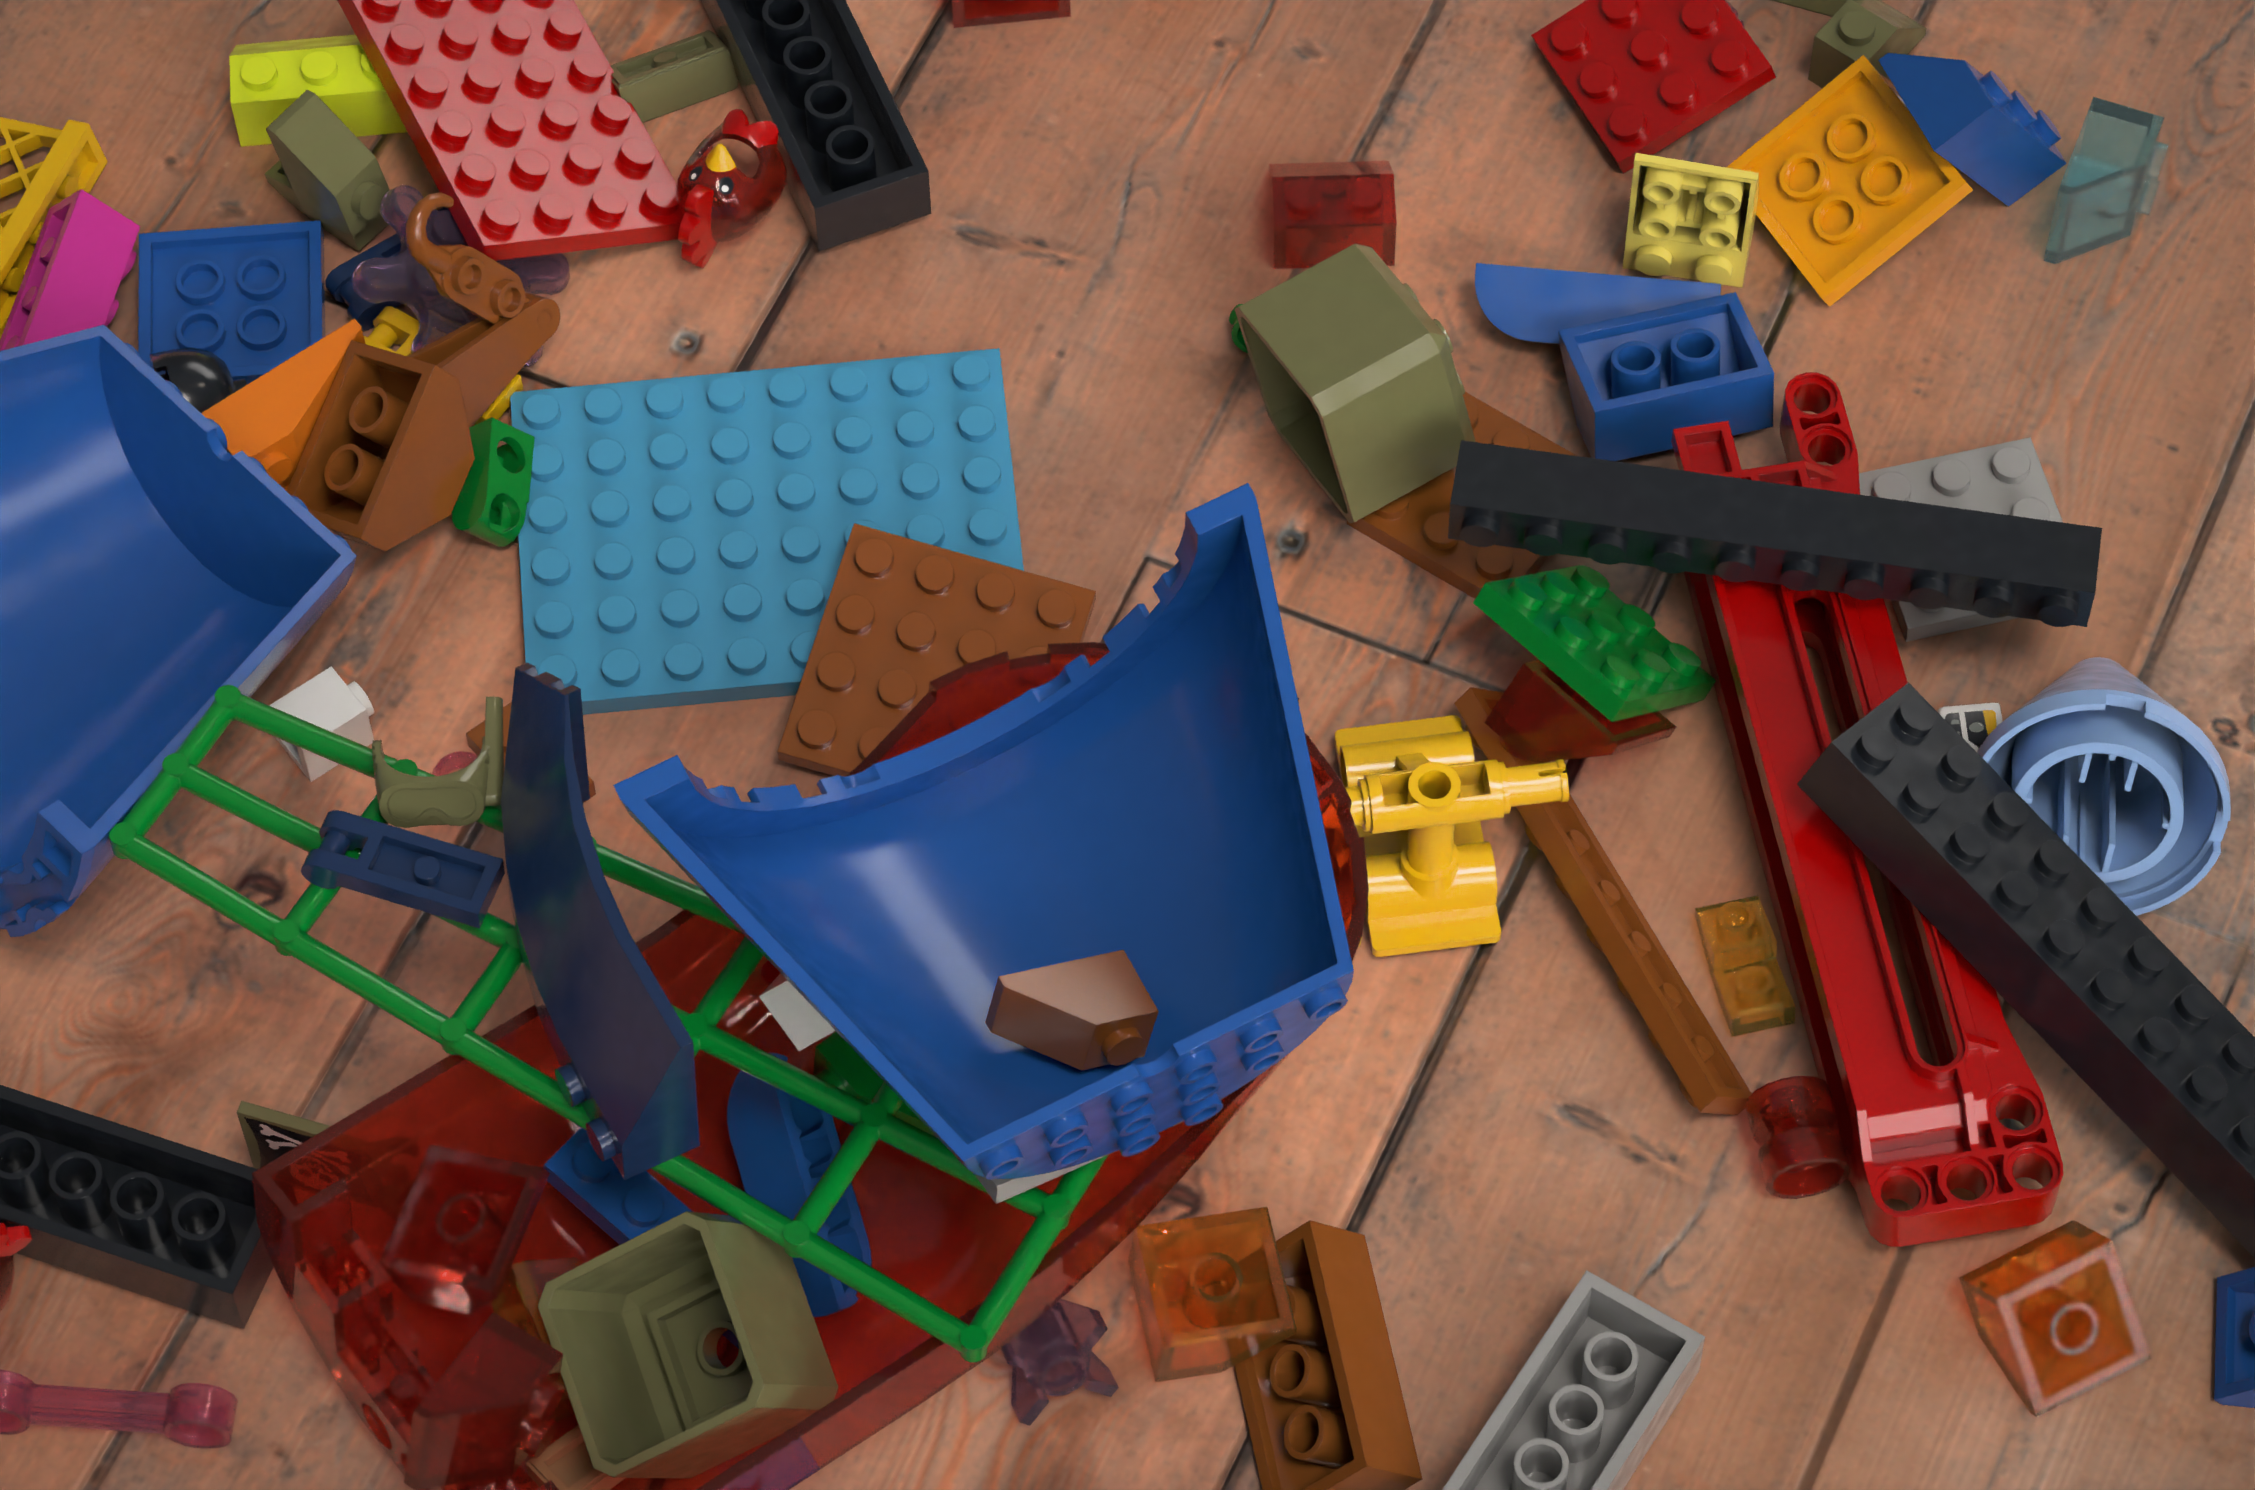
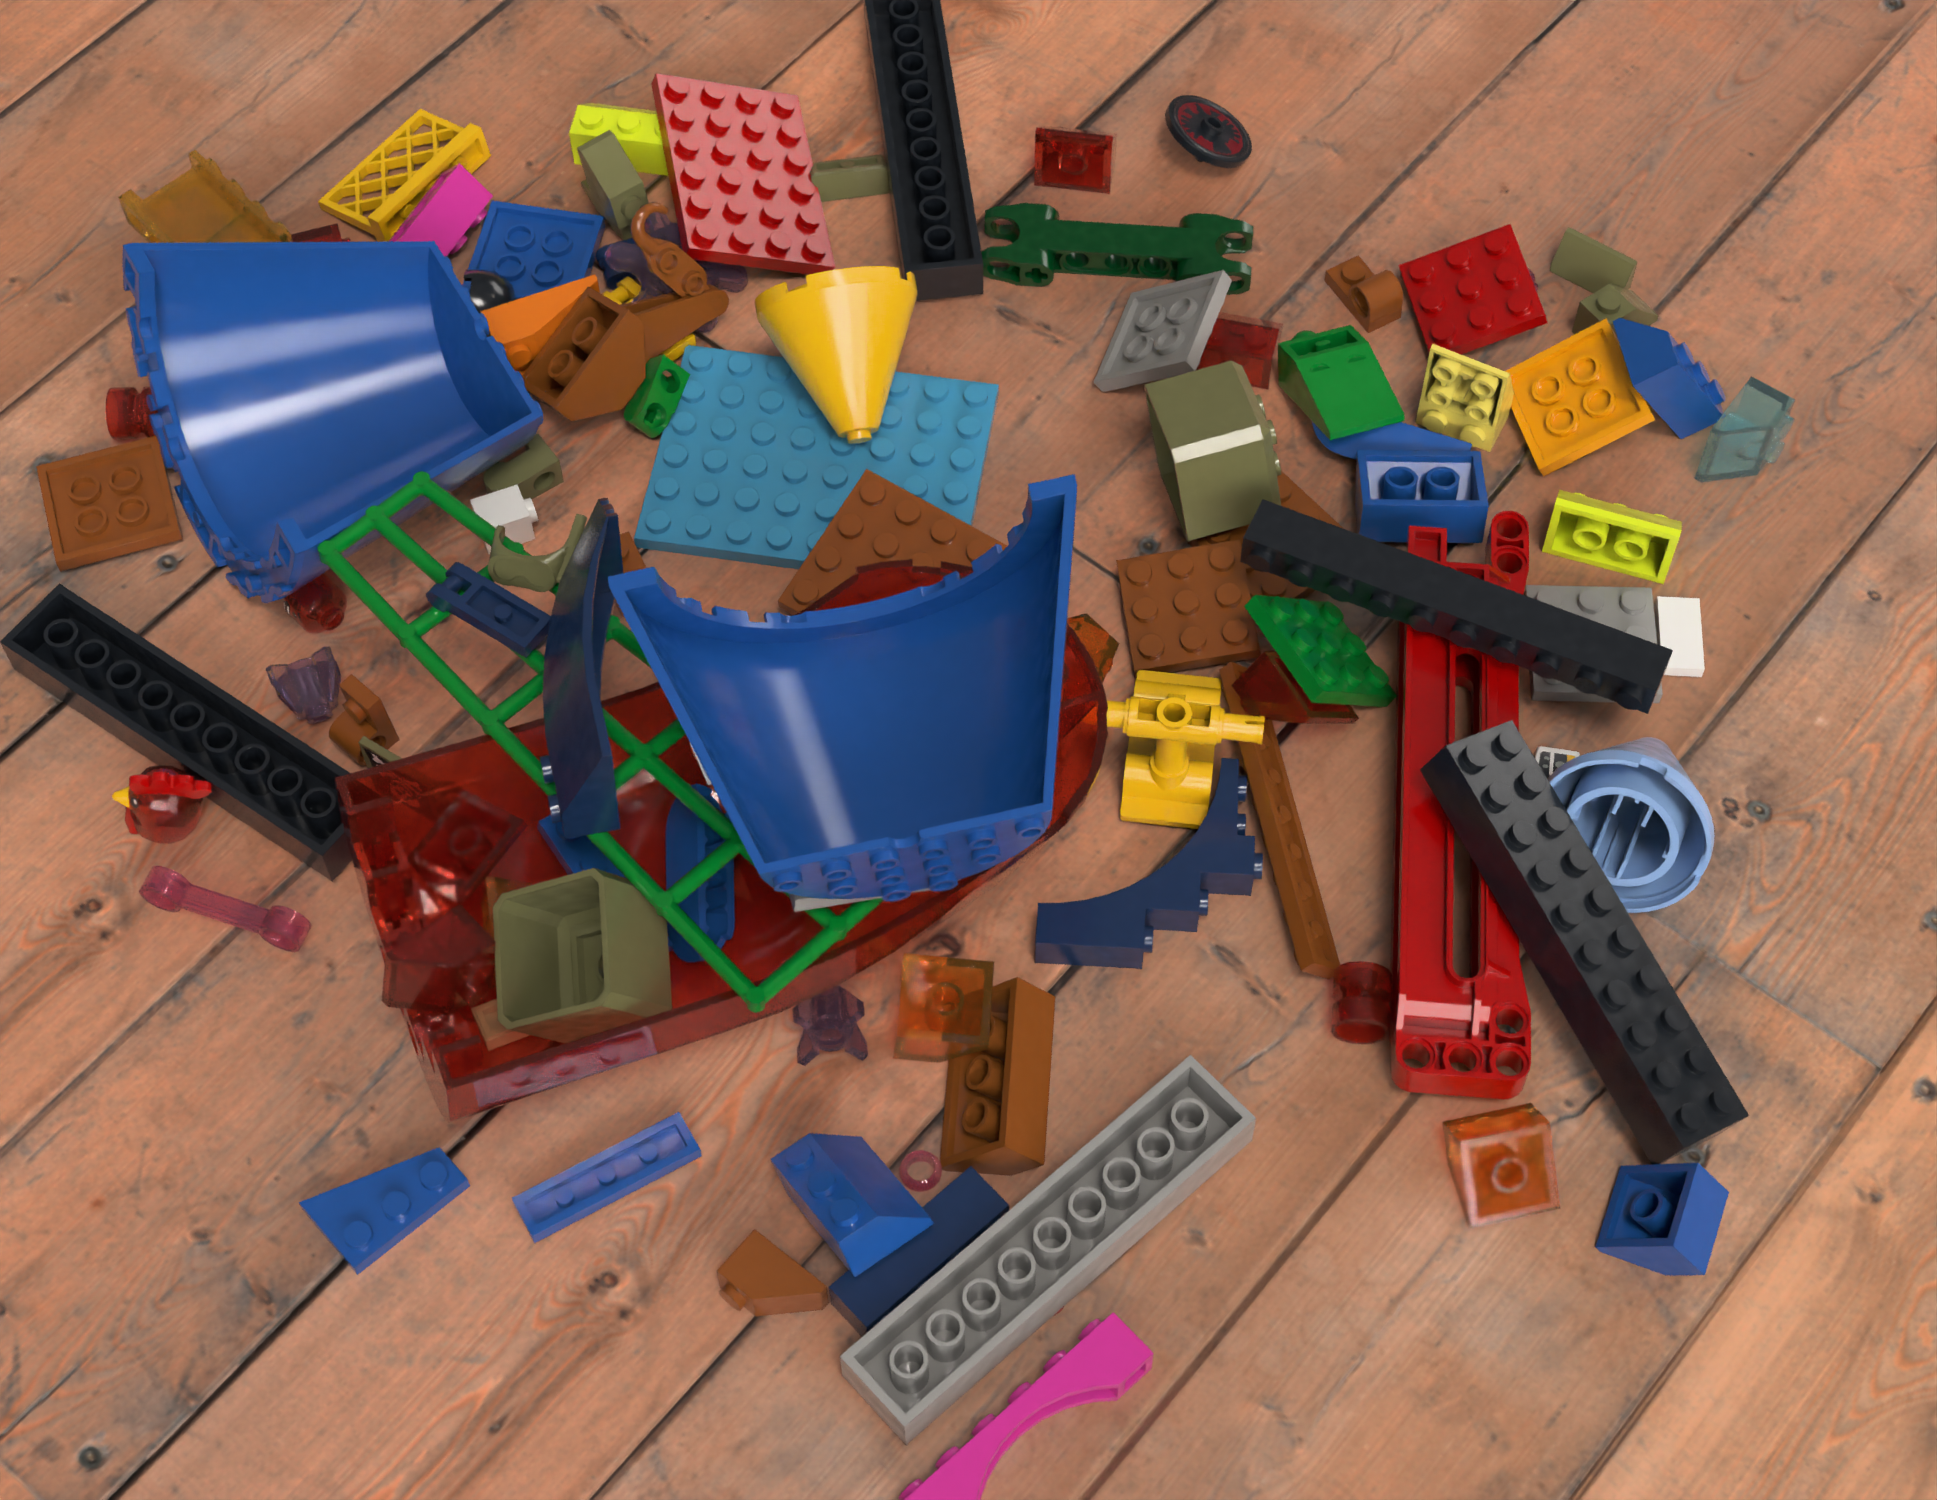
camera: 15 degrees right, 0 degrees up
(88, 928) = (316, 605): none -> clear red head
(113, 1046) = (308, 685): none -> brick
(216, 1080) = (362, 717): none -> dark orange plate
(343, 638) = (532, 471): none -> olive leg
(719, 198) = (848, 247): piece -> none
(764, 340) = (843, 340): none -> yellow cone
(1076, 1011) = (879, 797): dark orange slope -> none
(1213, 86) = (1052, 246): none -> dark green piece
(1223, 215) = (1163, 331): none -> light grey plate
(1383, 622) = (1188, 608): none -> dark orange plate
(1426, 1109) = (1120, 925): none -> dark blue arch
(1499, 234) = (1337, 382): none -> green slope
(1503, 94) = (1369, 297): none -> dark orange plate
(1744, 965) = (1361, 883): clear yellow slope -> none
(1955, 375) = (1612, 536): none -> neon yellow slope
(2089, 492) = (1681, 630): none -> white tile

